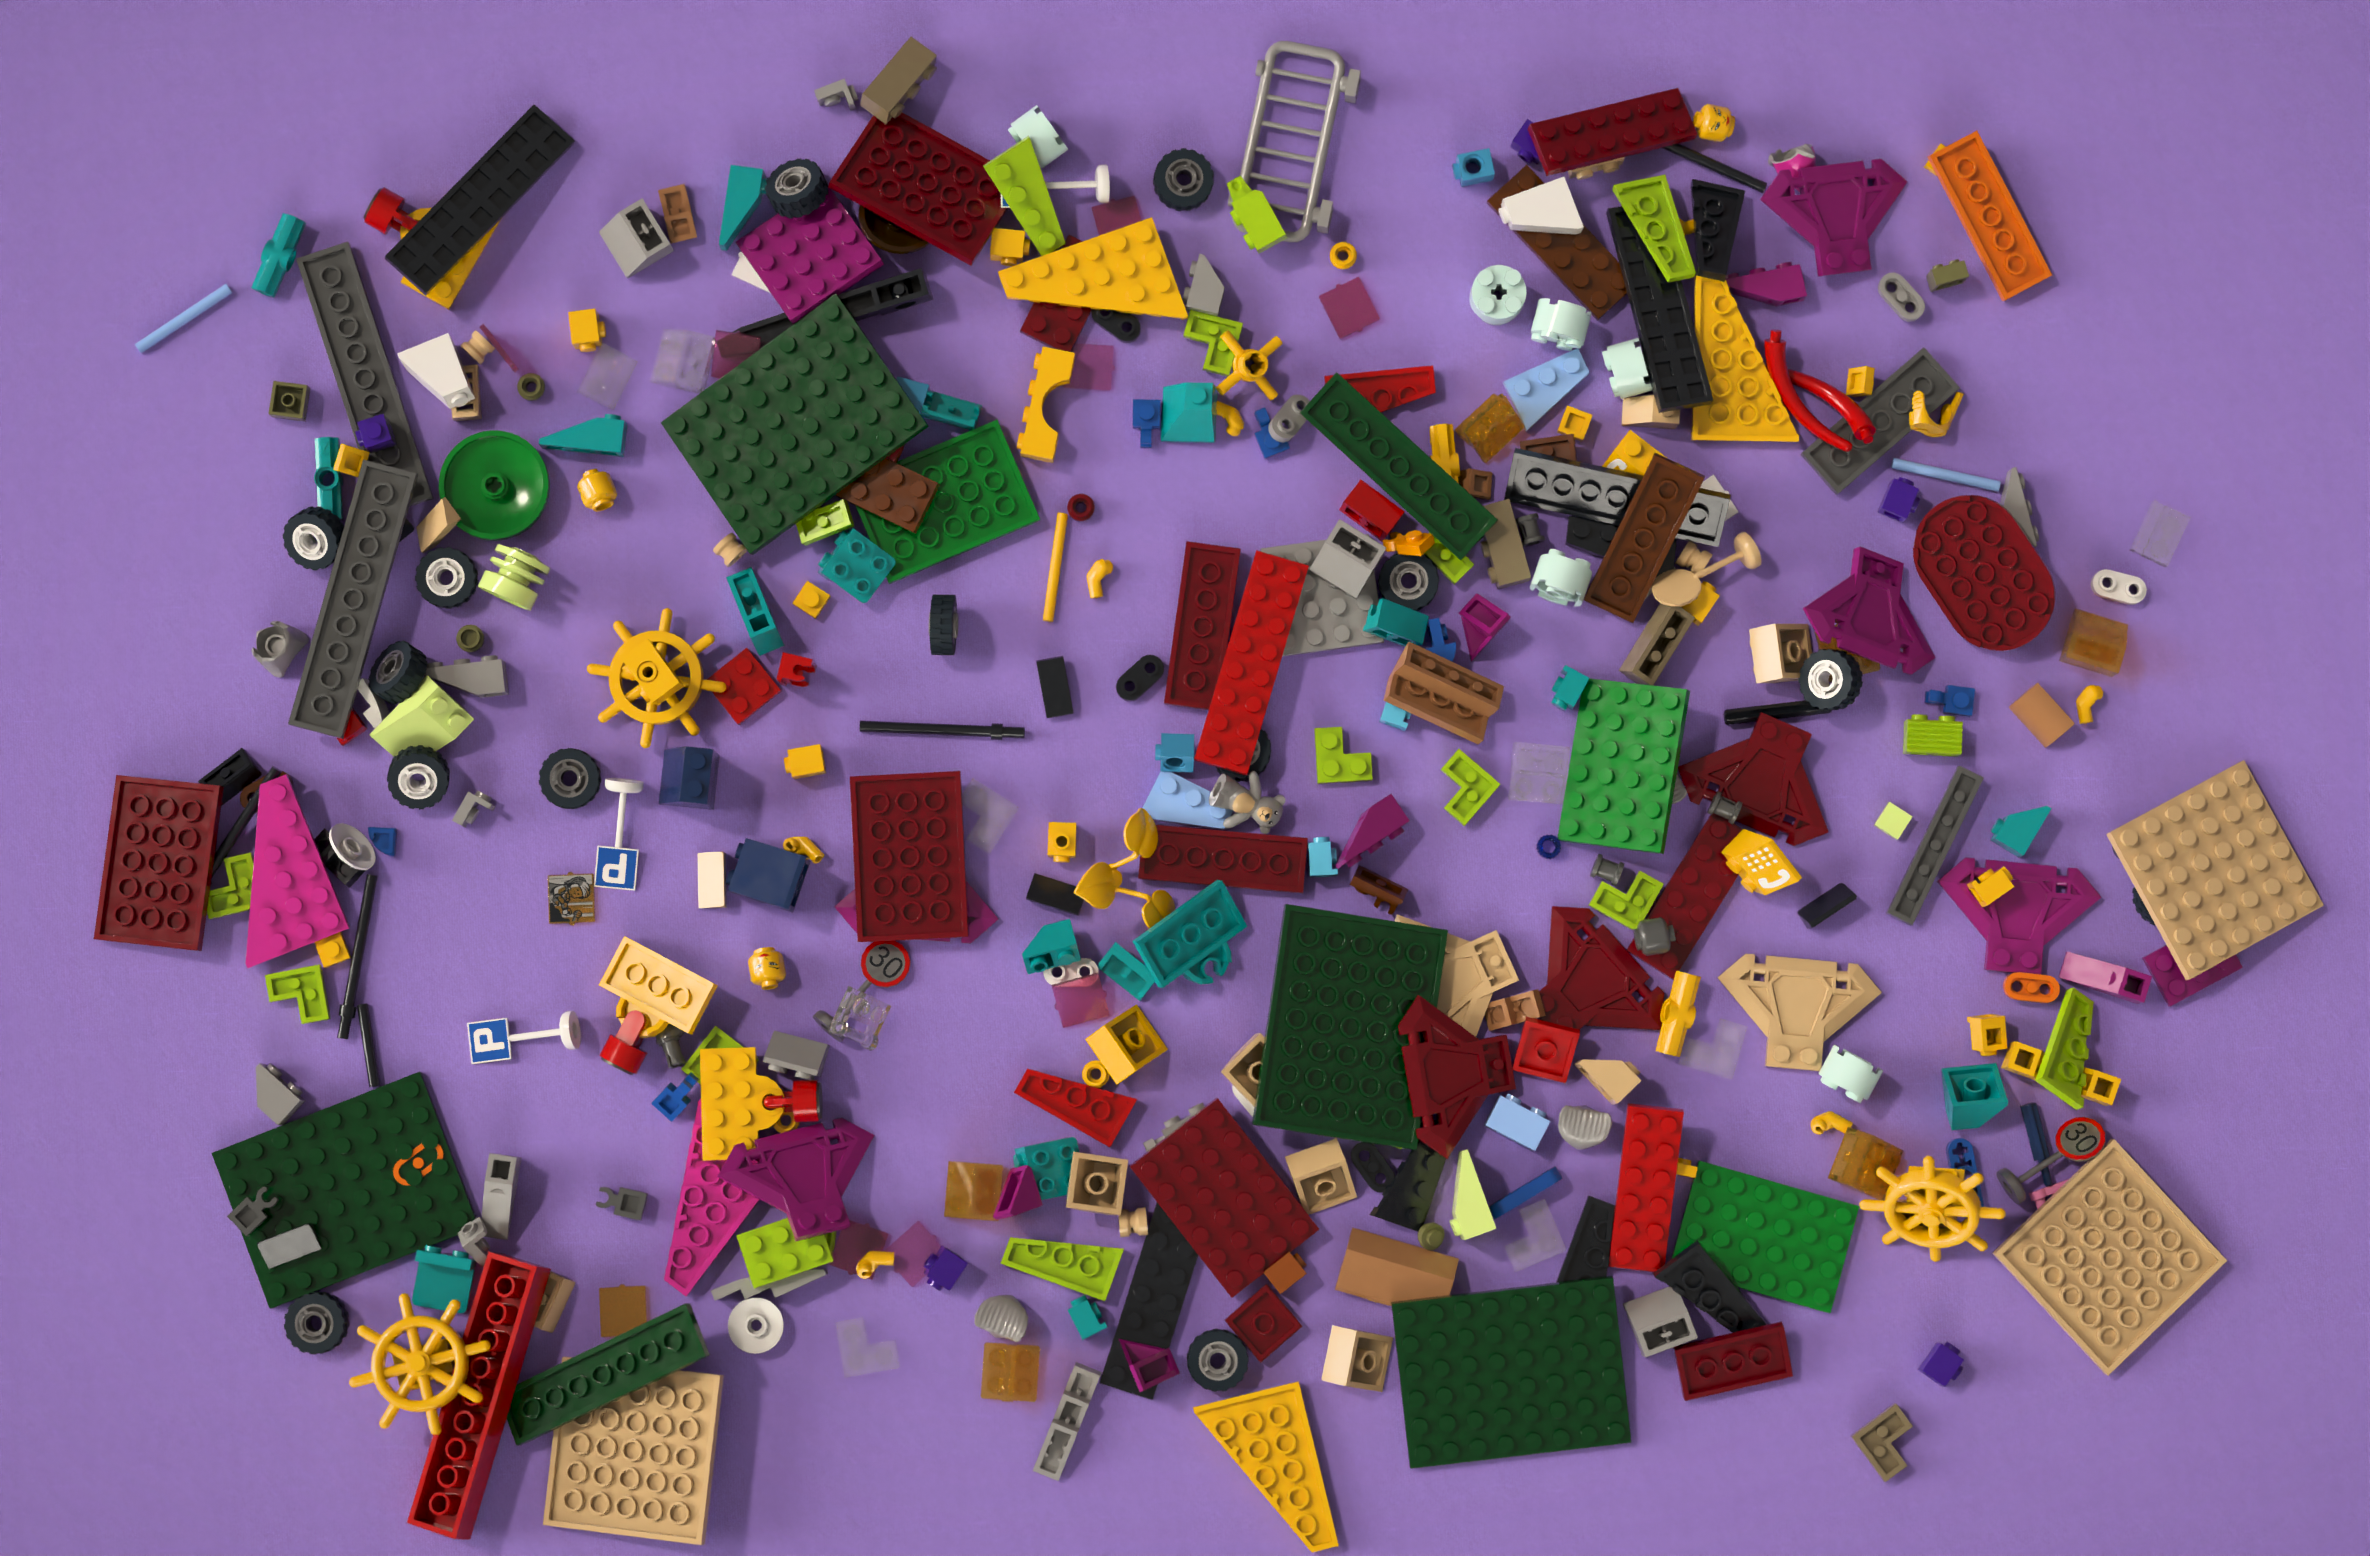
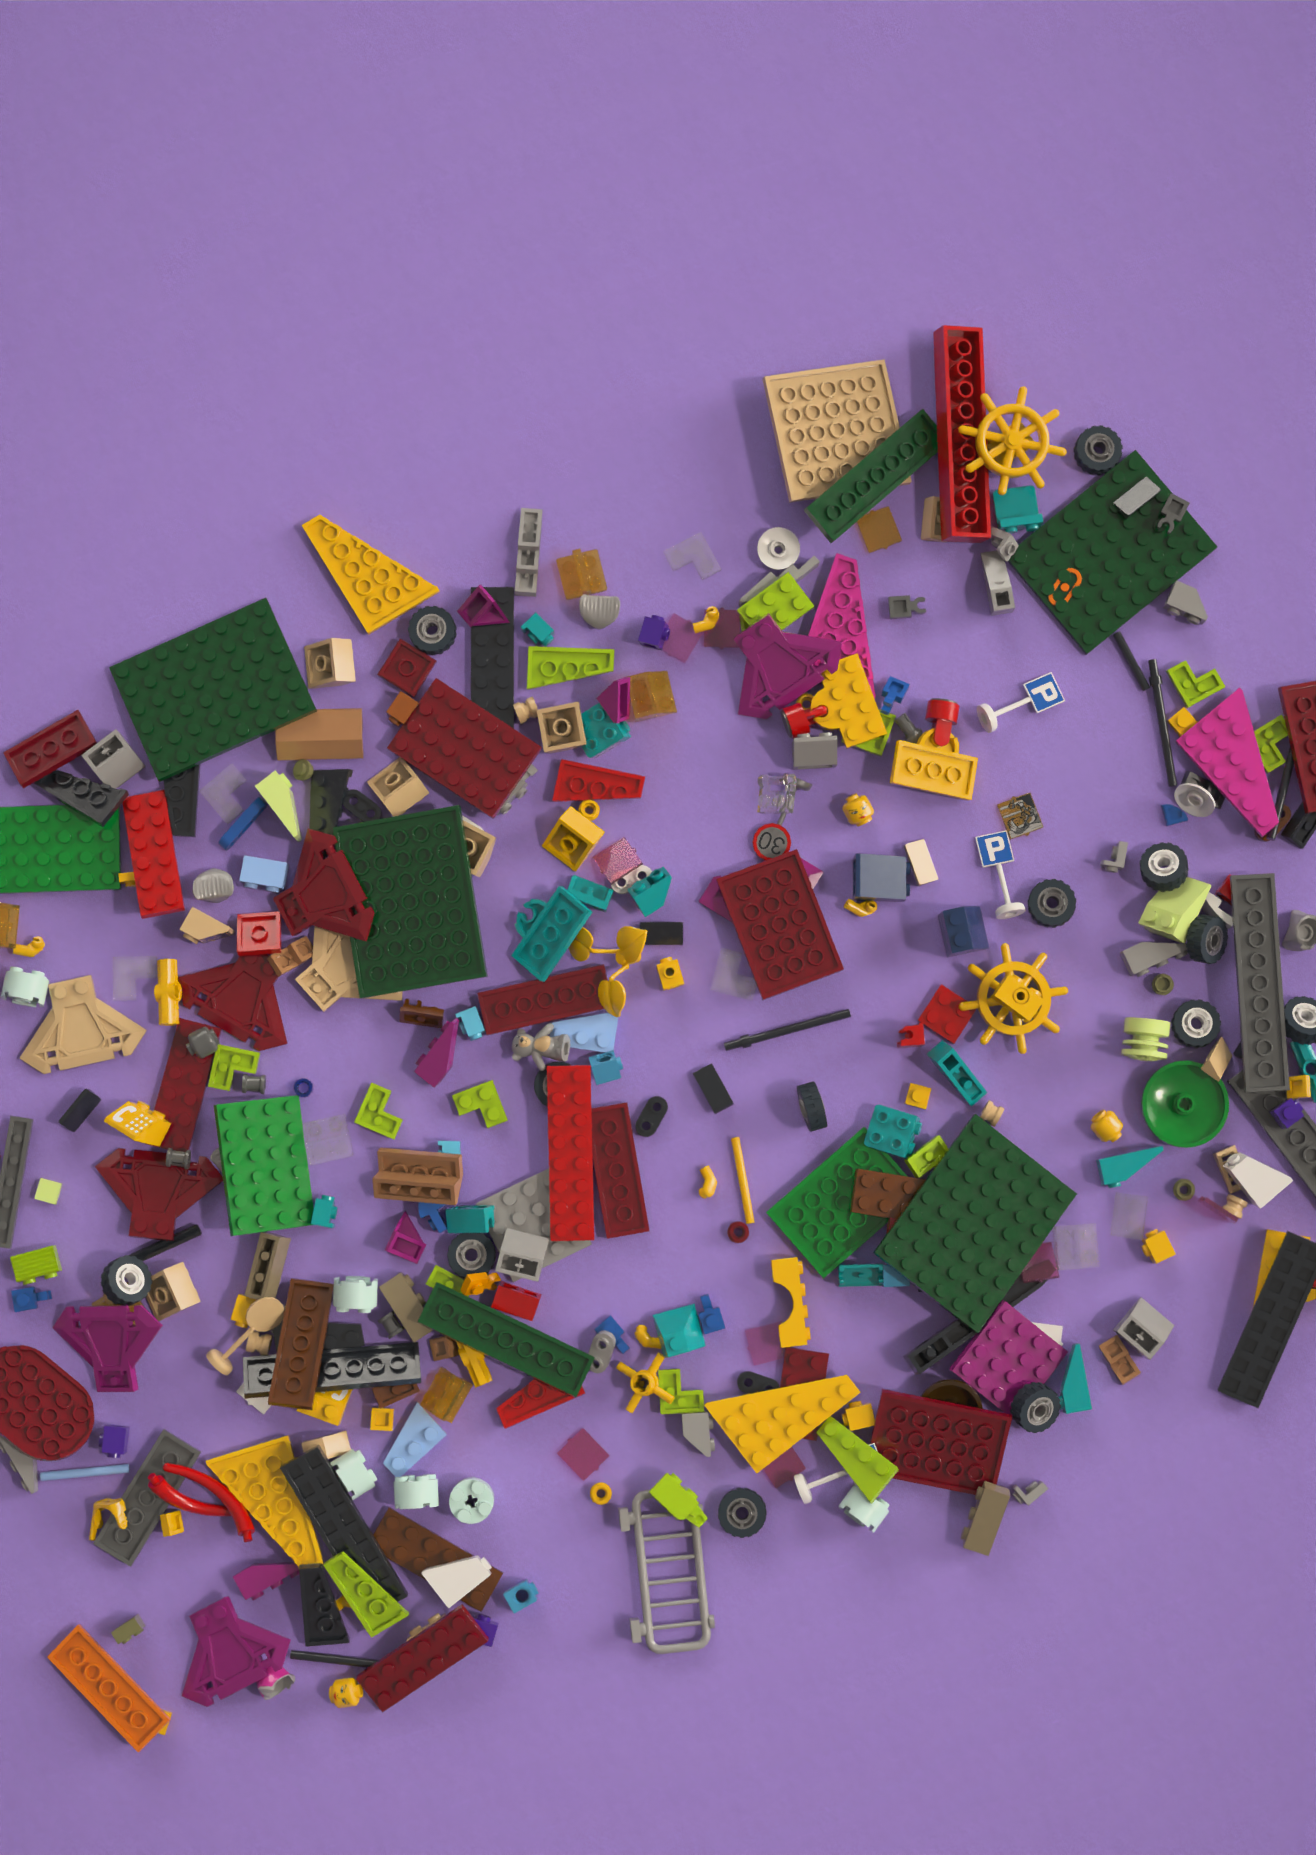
camera: 160 degrees right, 0 degrees up
(805, 761) = (881, 971): yellow brick -> none
(1903, 295) = (159, 1602): light grey plate -> none

